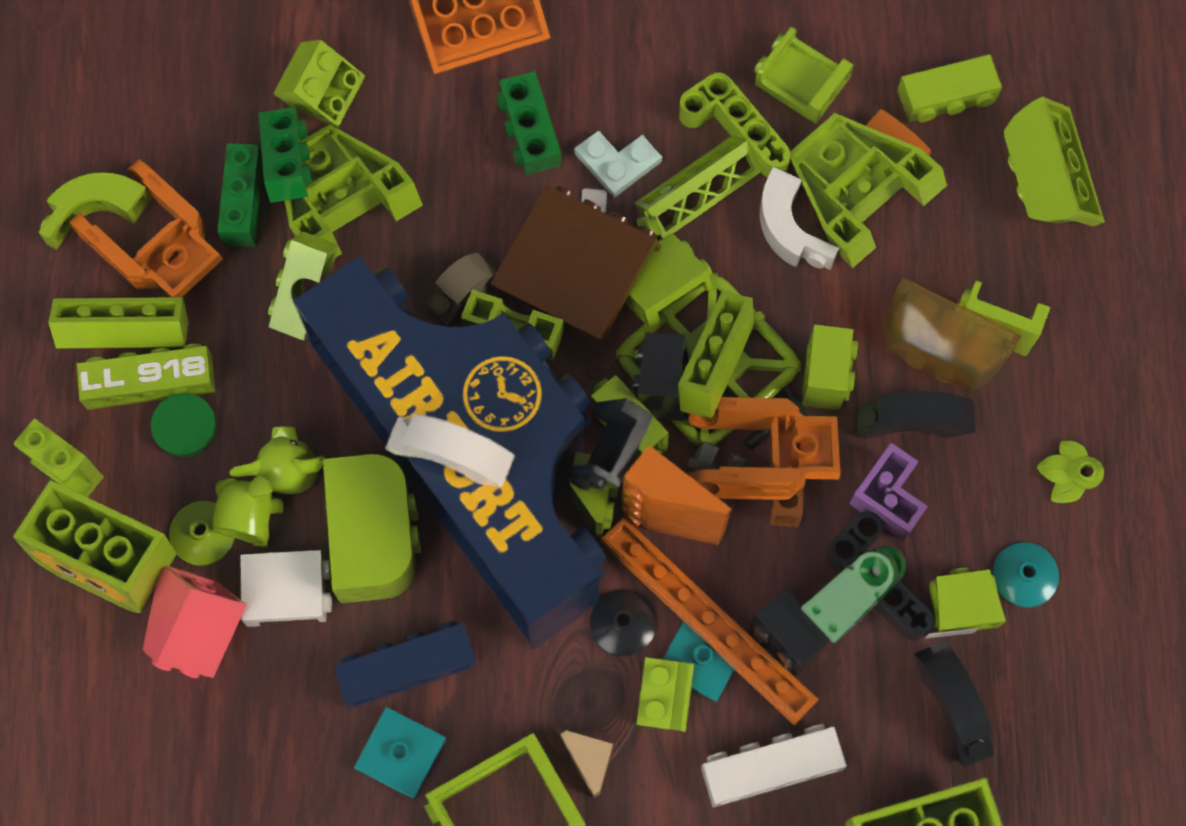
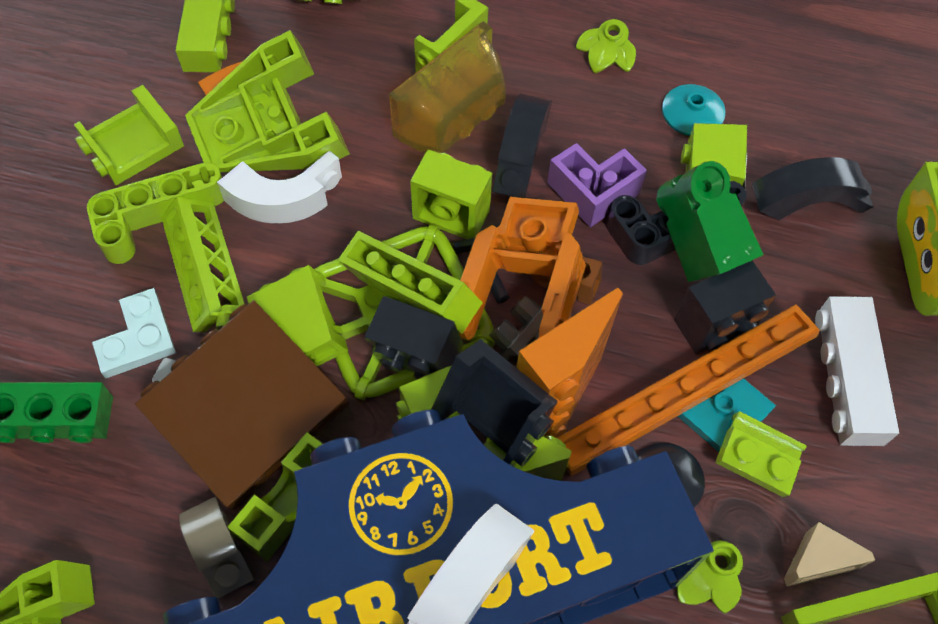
camera: 75 degrees left, 10 degrees down
(548, 665) = (713, 582): none -> lime plate

